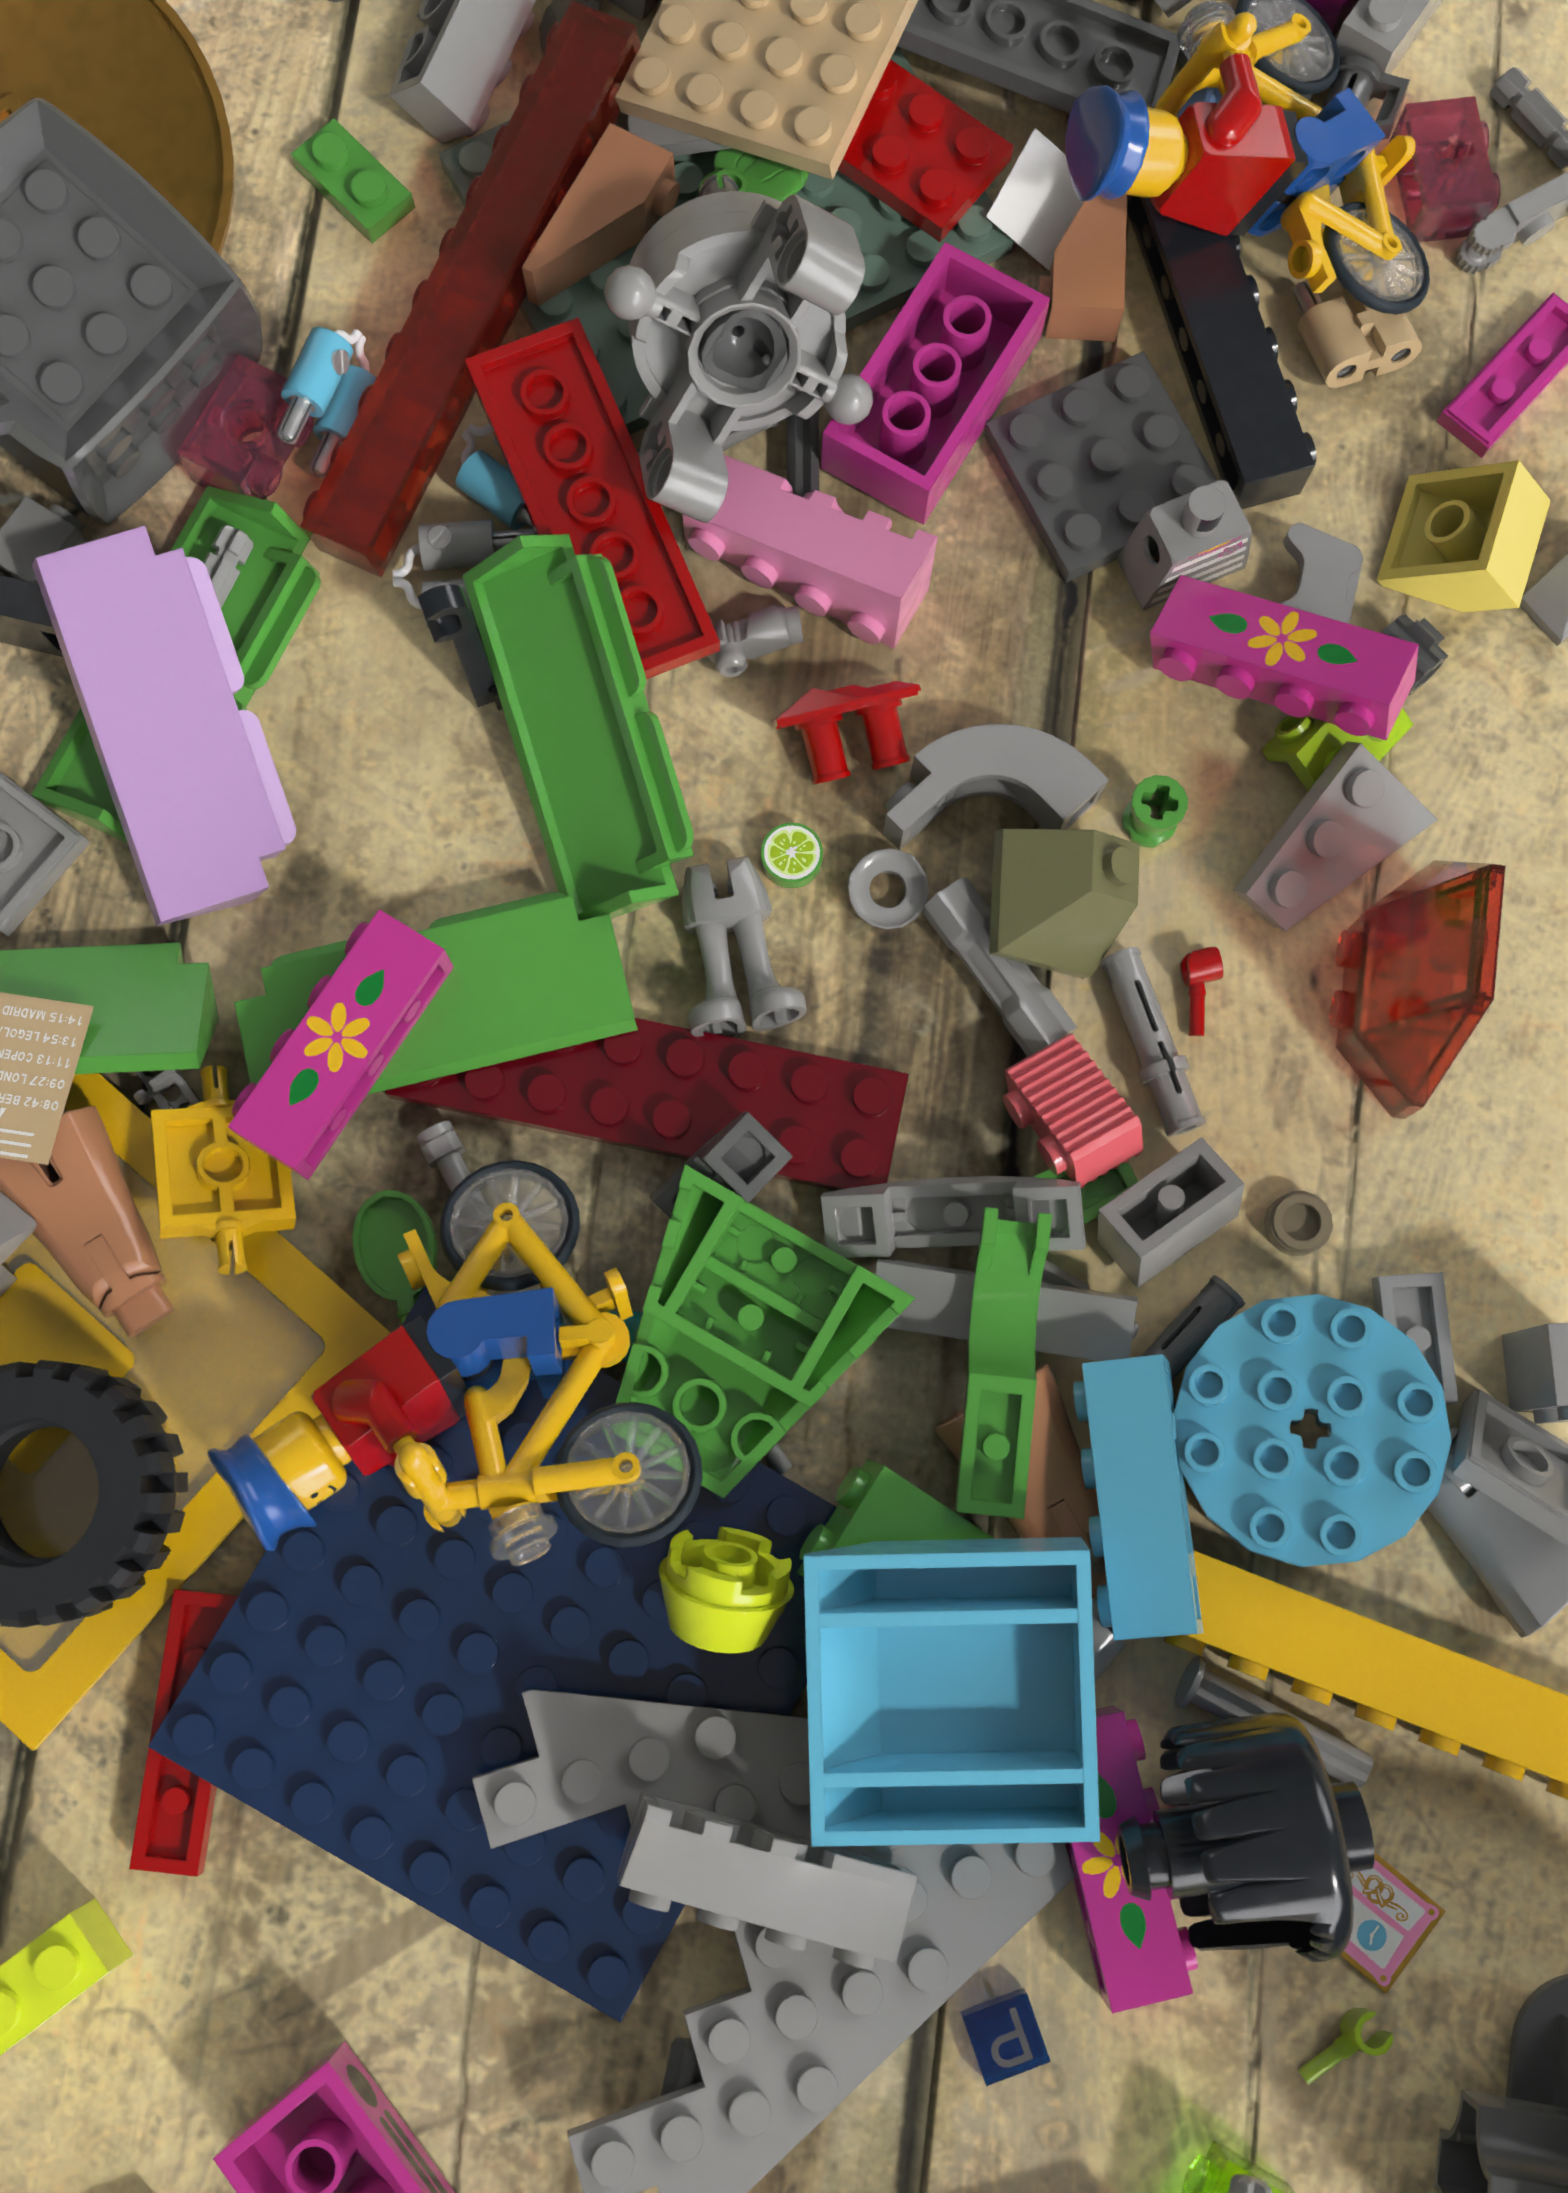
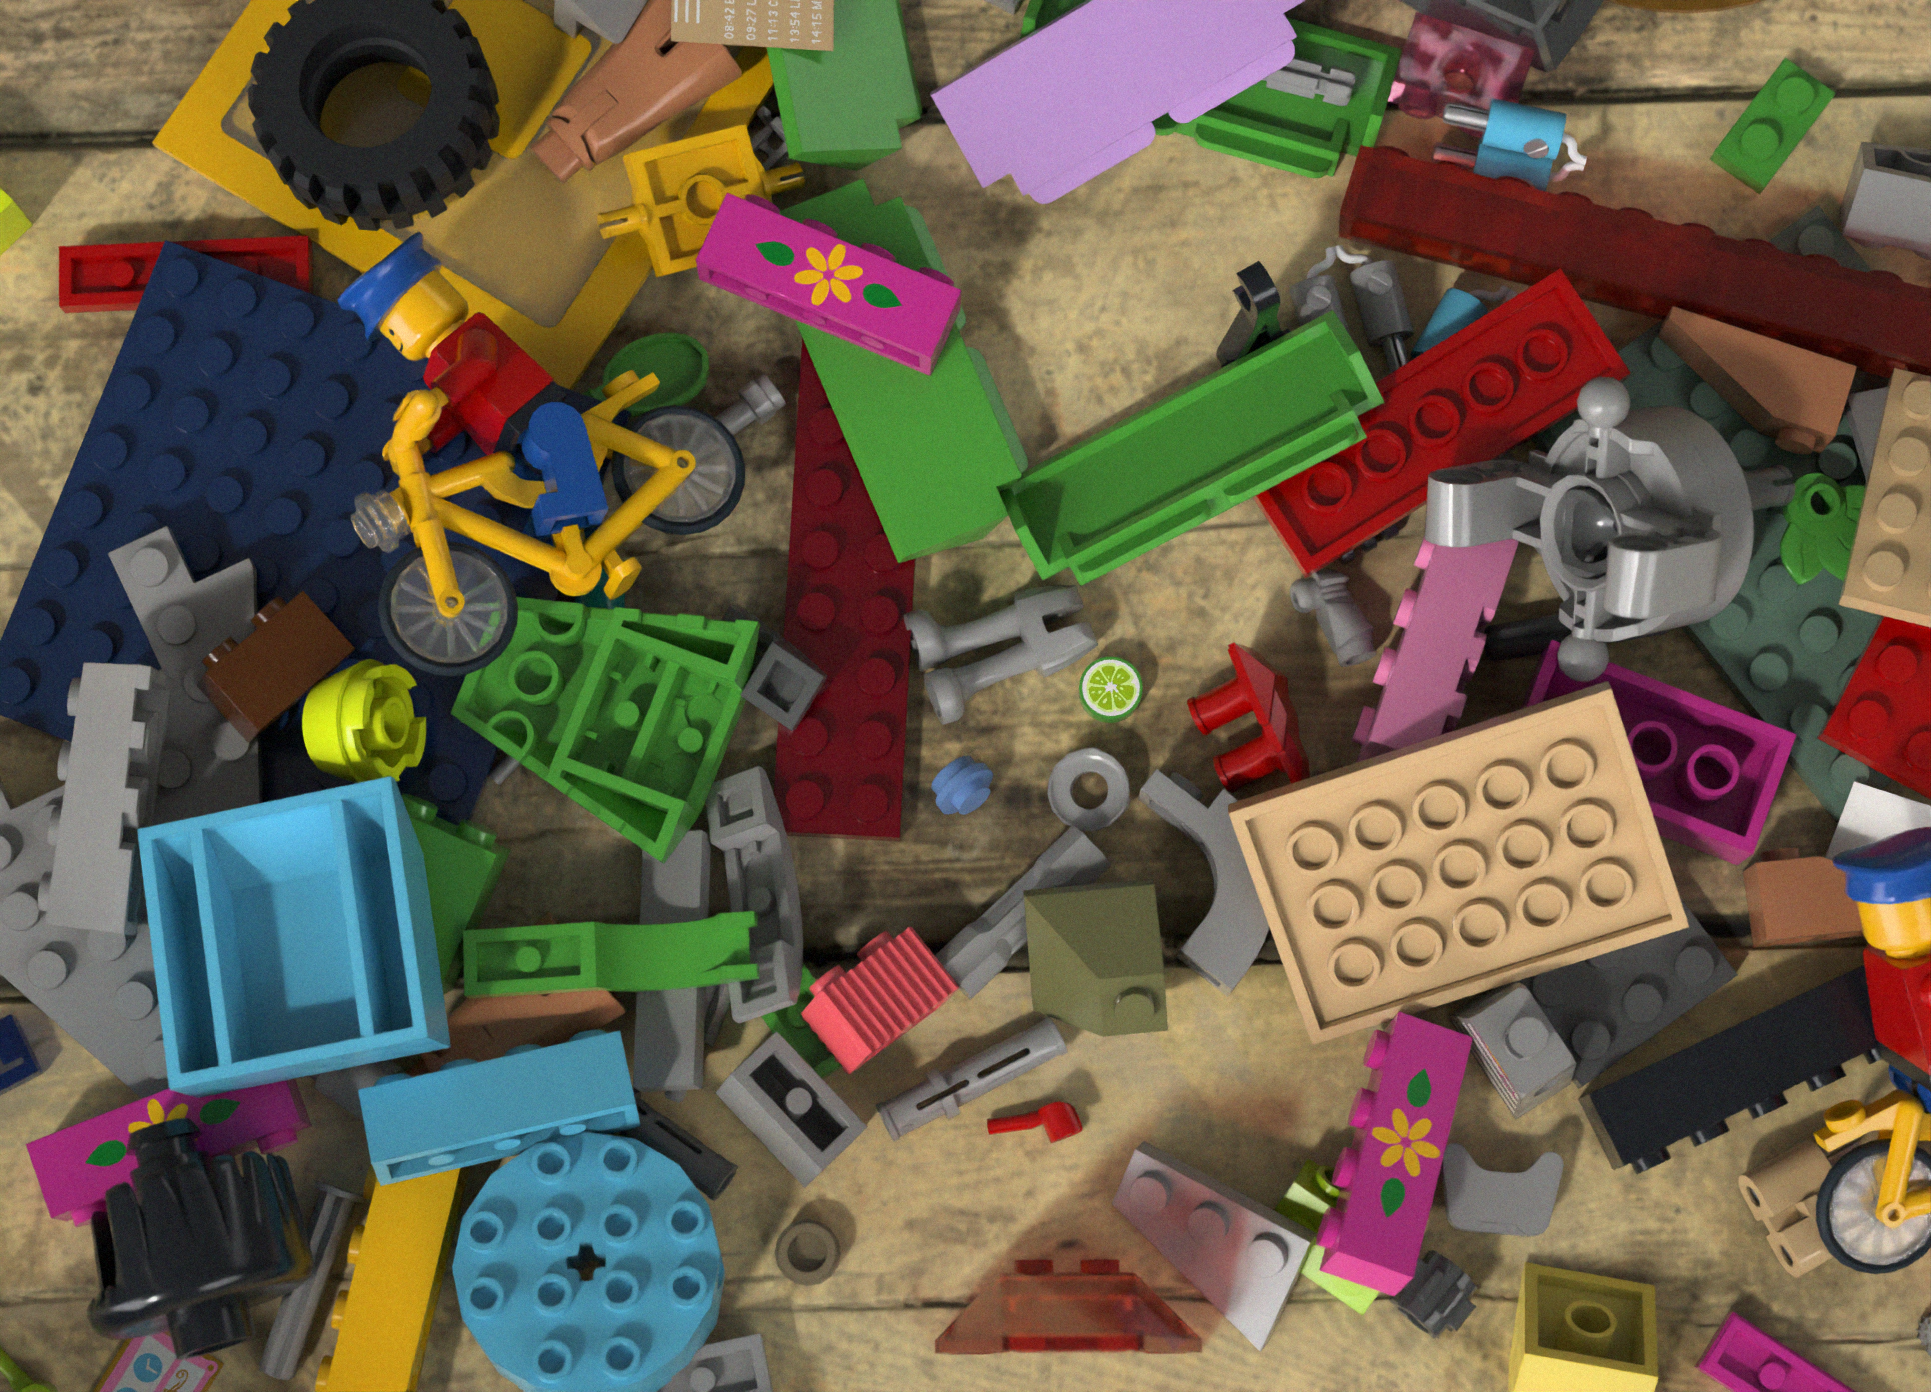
camera: 85 degrees right, 0 degrees up
(646, 1677) = (273, 665): none -> reddish brown brick
(868, 1005) = (962, 786): none -> medium blue plate
(1025, 544) = (1459, 863): none -> tan plate
(1172, 805) = (1230, 1037): bright green bush -> none

